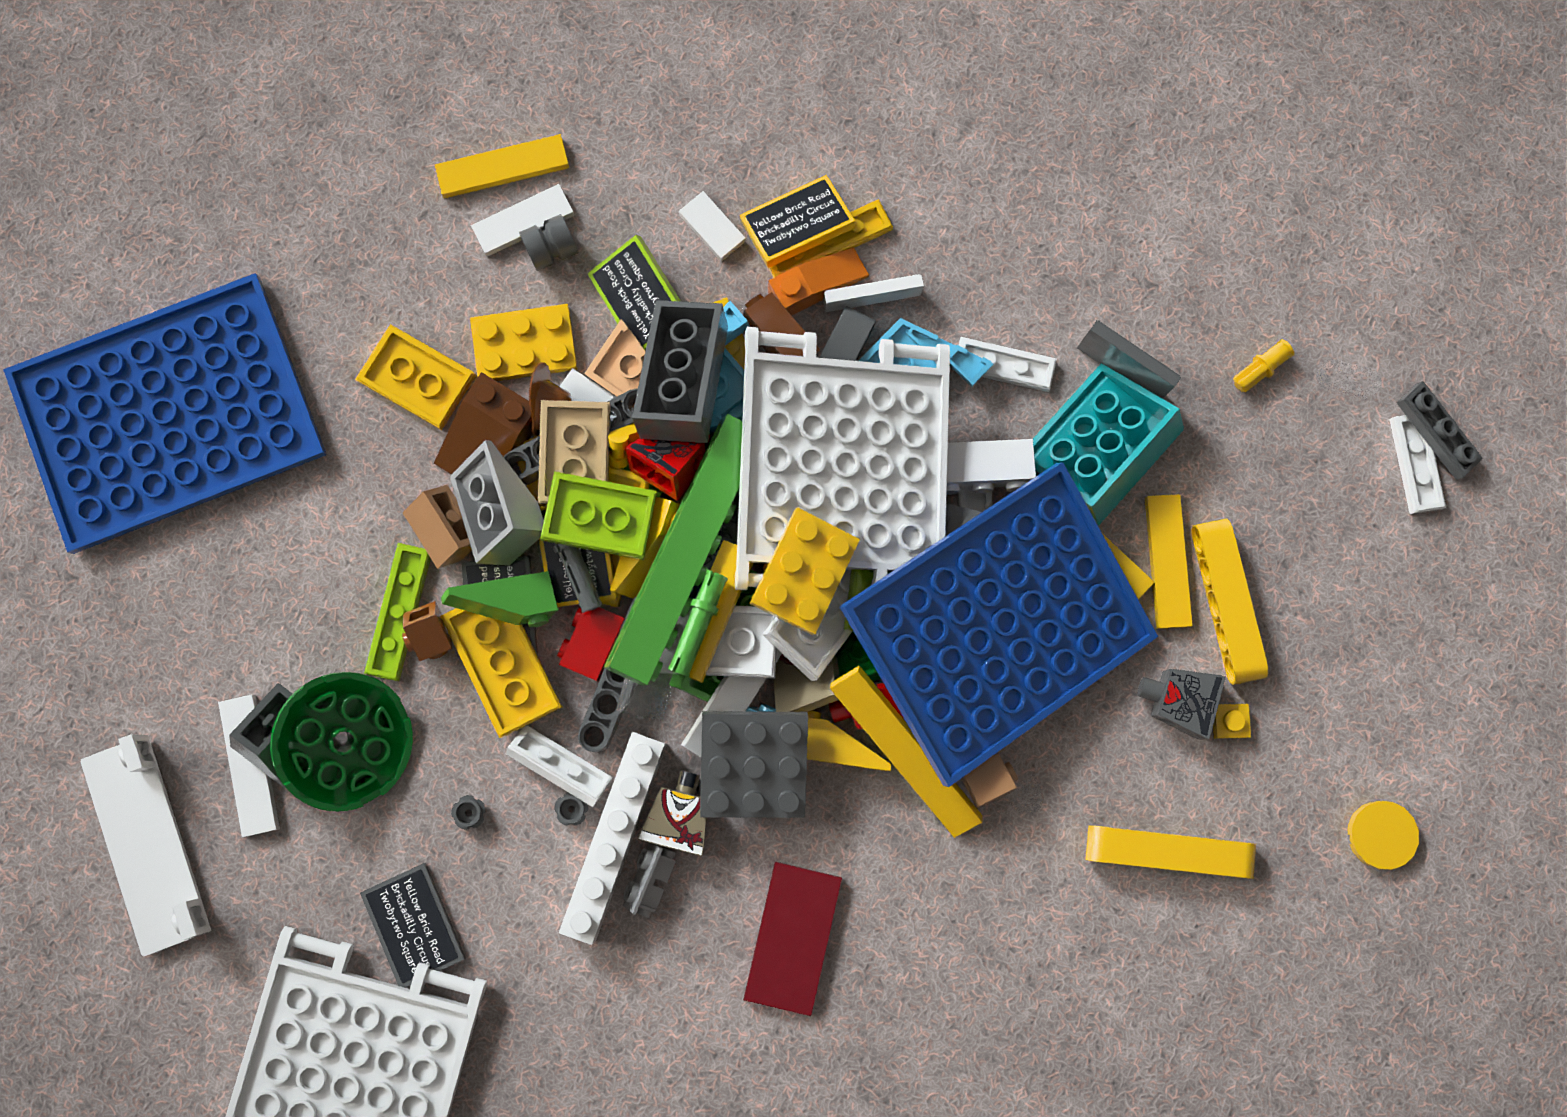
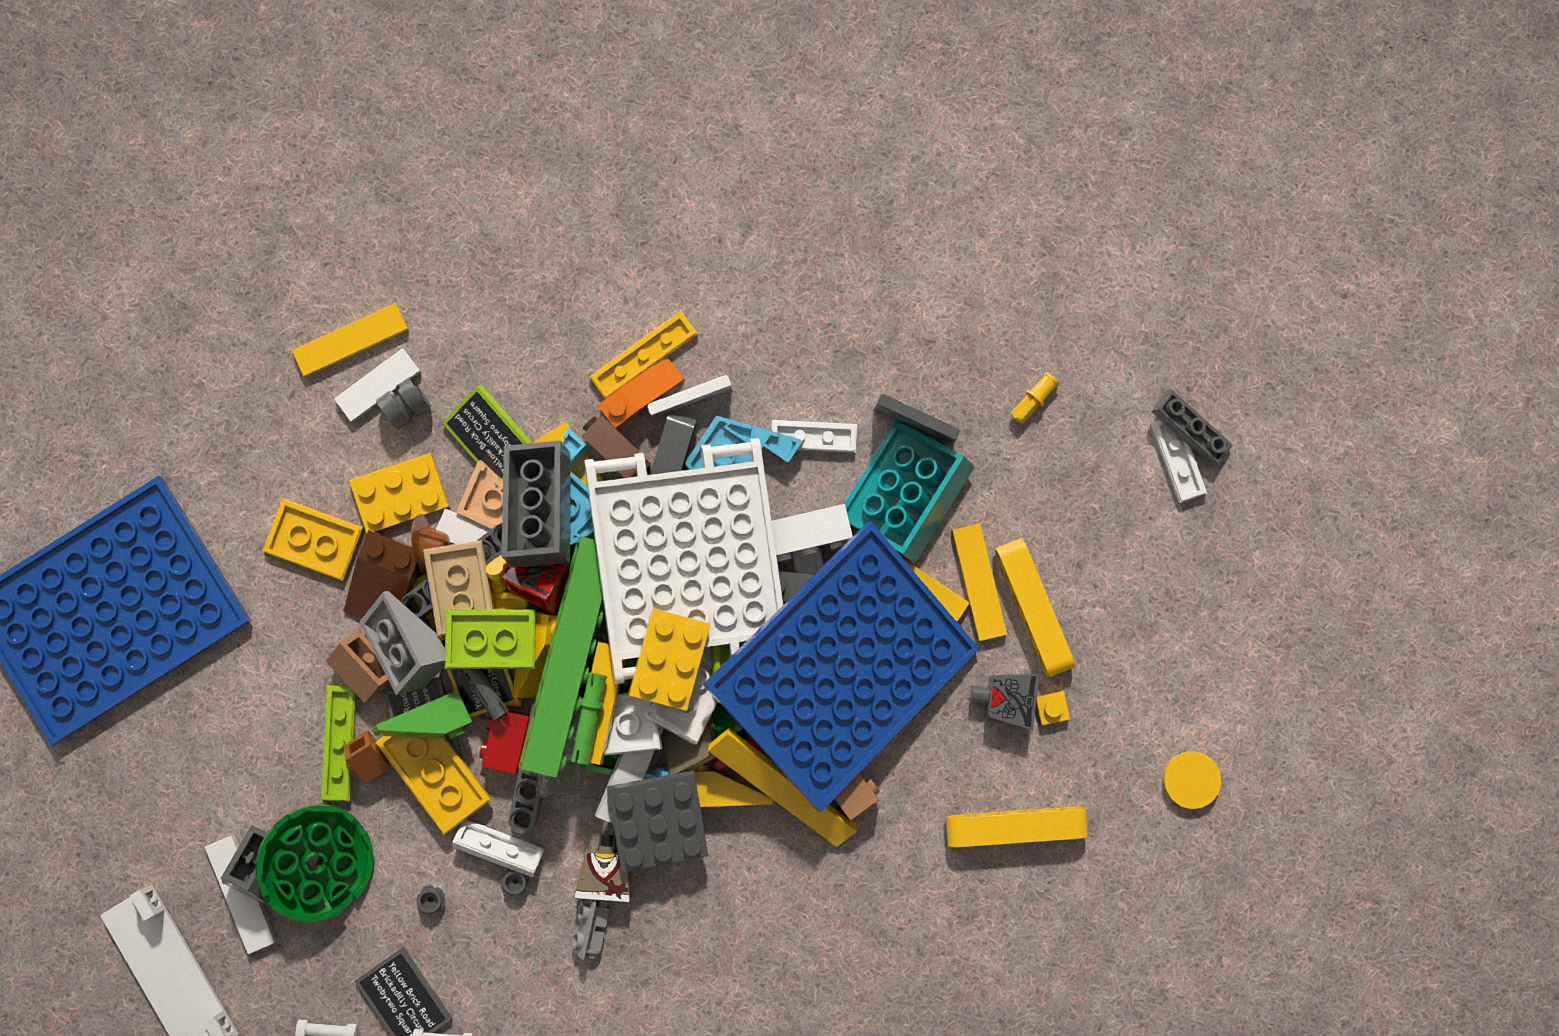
camera: 10 degrees left, 5 degrees up
(612, 838) = (554, 899): white brick -> none
(712, 226) = (541, 360): white tile -> none
(792, 938) = (717, 953): dark red tile -> none
(797, 221) = (614, 344): black tile -> none

